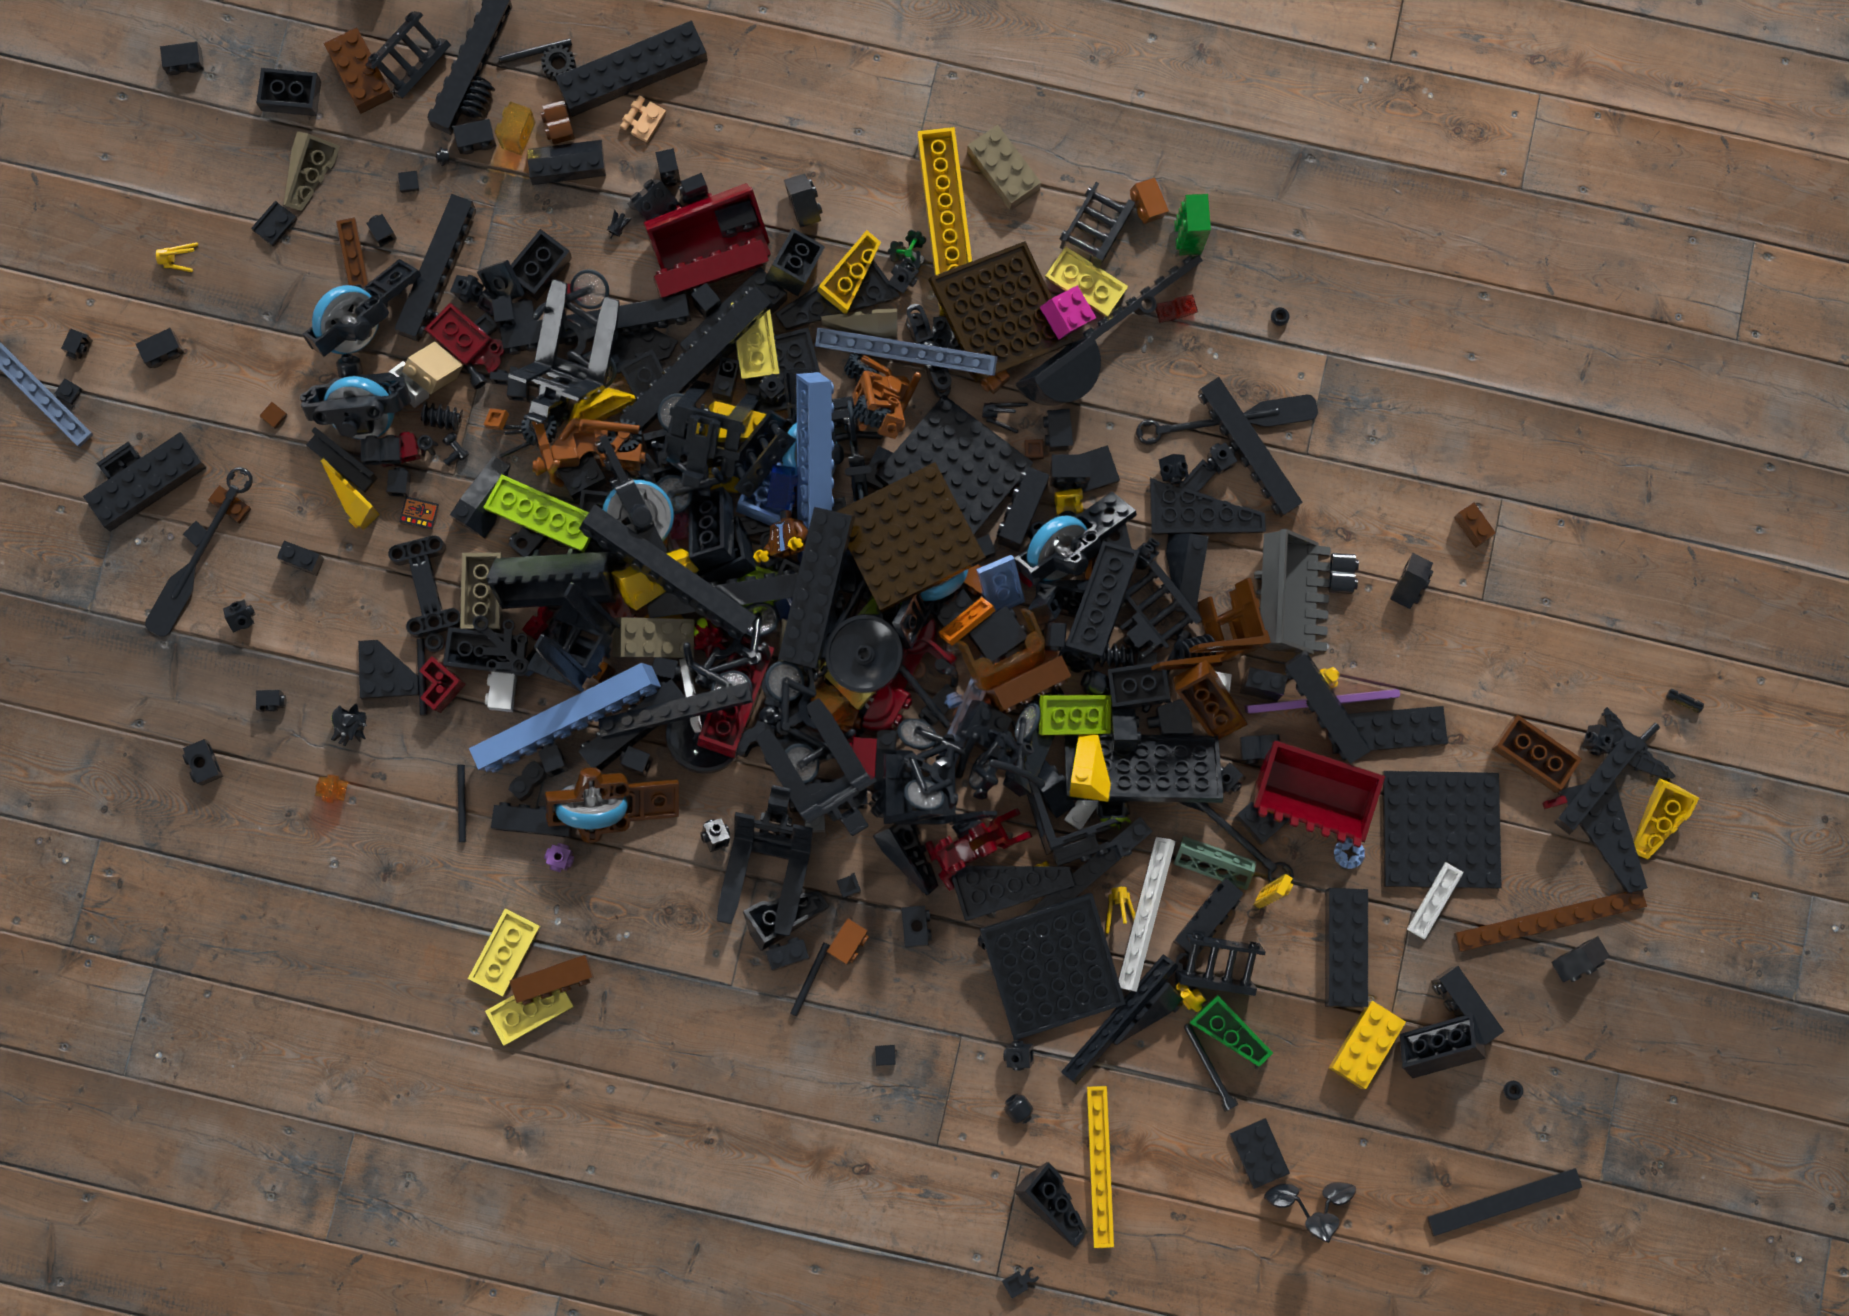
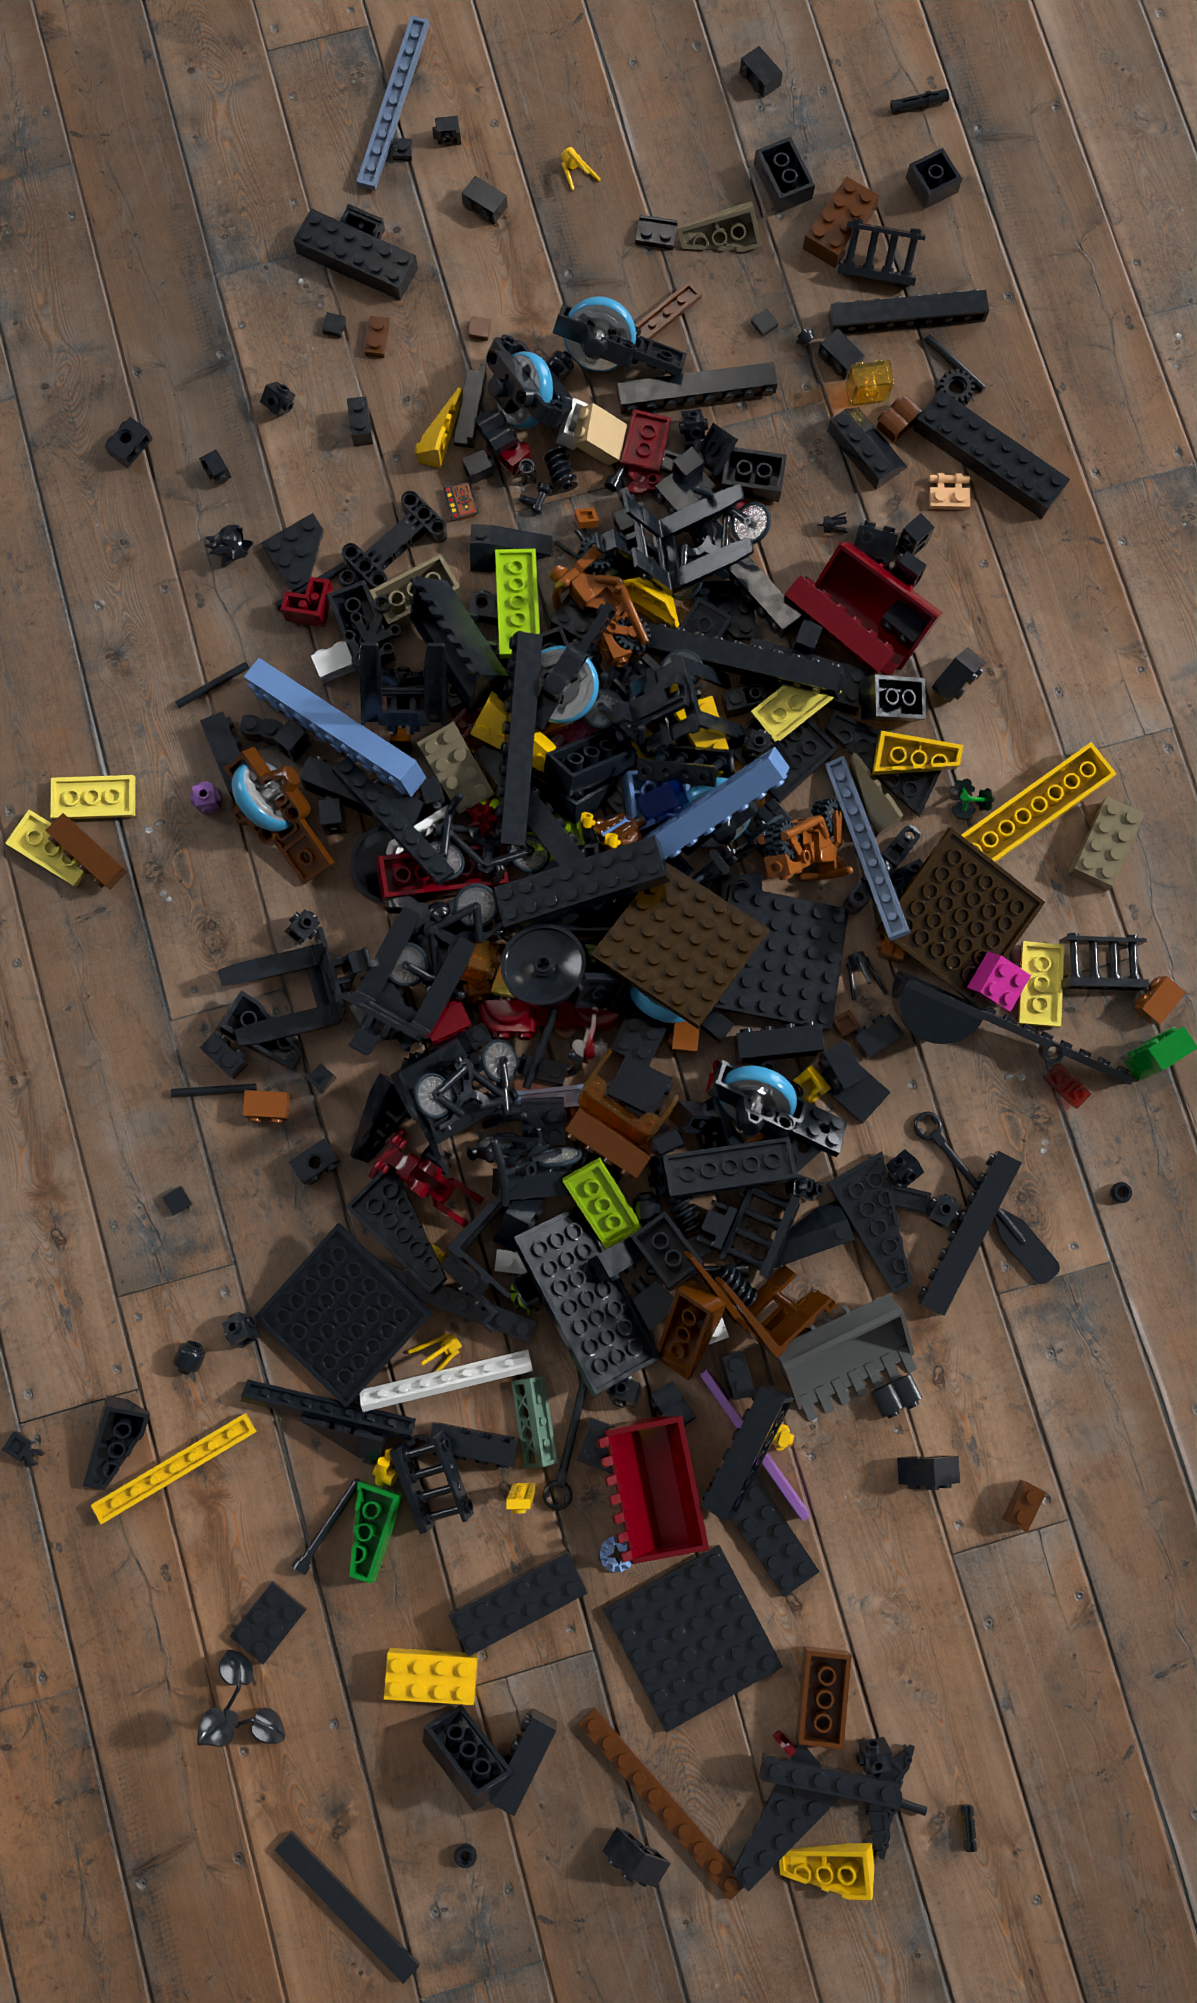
camera: 65 degrees right, 0 degrees up
(181, 584) = (279, 336): black piece -> none
(331, 788) = (162, 562): clear orange brick -> none
(381, 230) = (704, 323): black brick -> none
(476, 97) = (878, 335): black piece -> none
(538, 625) = (411, 658): dark red plate -> none
(904, 276) = (941, 808): black brick -> none
(953, 700) = (553, 1079): medium blue plate -> none
(966, 621) = (634, 1048): orange plate -> none
(1001, 583) = (690, 1062): medium blue plate -> none
(1090, 772) = (553, 1245): yellow wedge -> none
(1435, 900) = (615, 1669): white tile -> none

